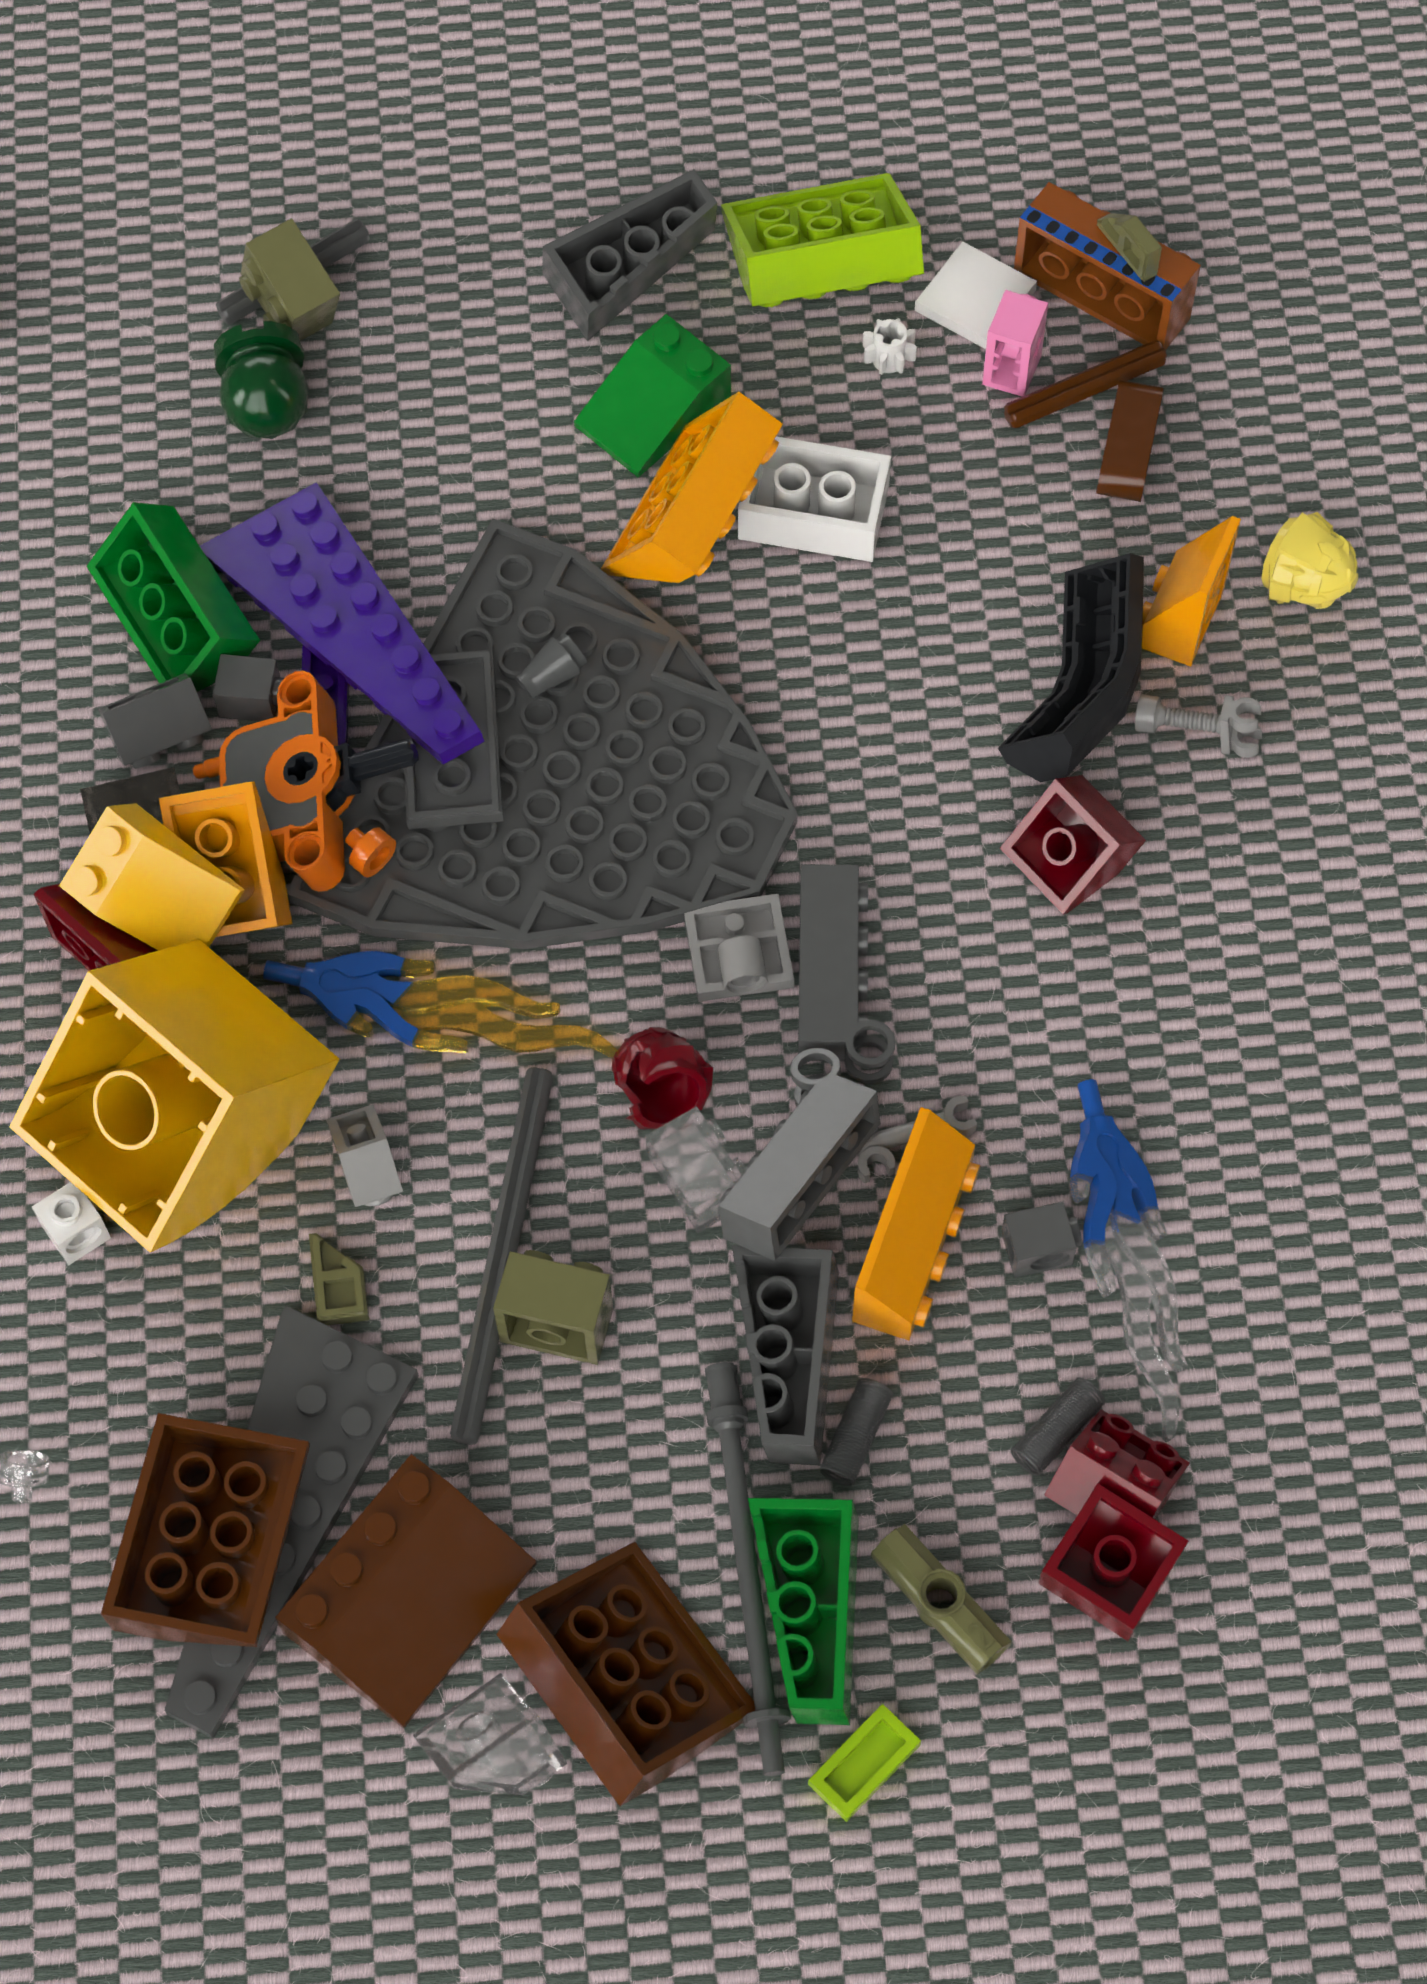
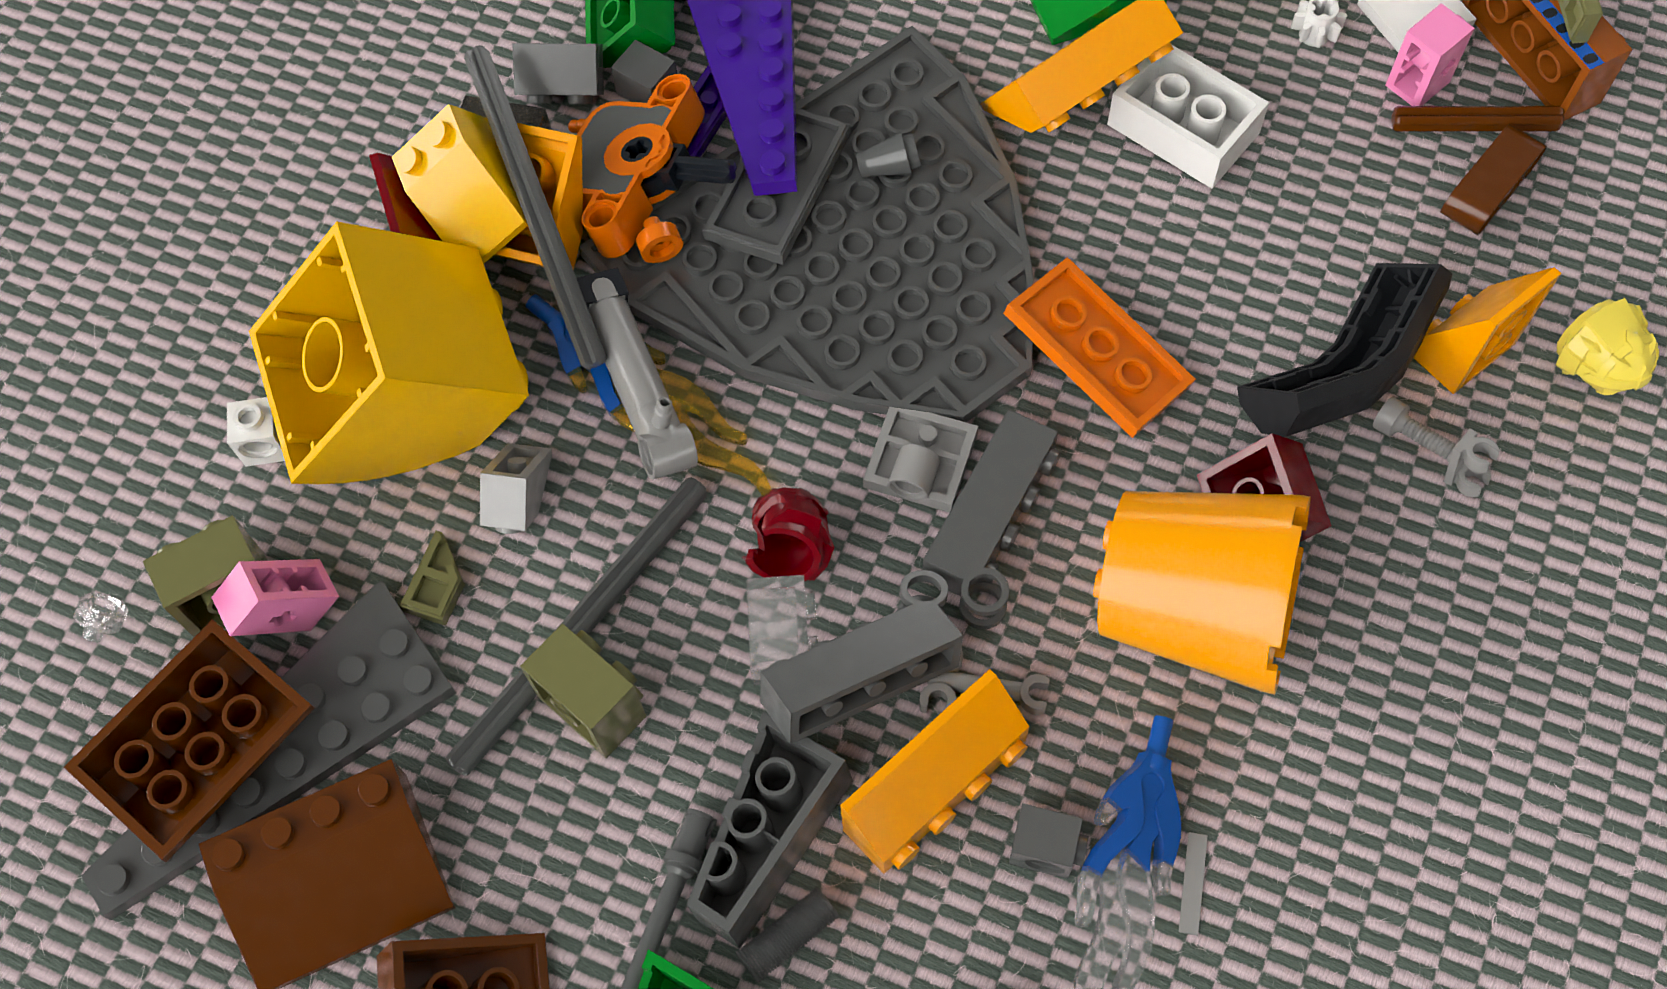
camera: 30 degrees right, 0 degrees up
(127, 1376) = (194, 569): none -> olive brick
(202, 1365) = (274, 596): none -> bright pink brick
(240, 870) = (535, 208): none -> dark grey axle
(487, 1045) = (662, 440): none -> light grey piece
(850, 766) = (1099, 346): none -> orange plate
(1066, 939) = (1204, 579): none -> light orange cone
(1181, 1215) = (1193, 884): none -> light grey piece

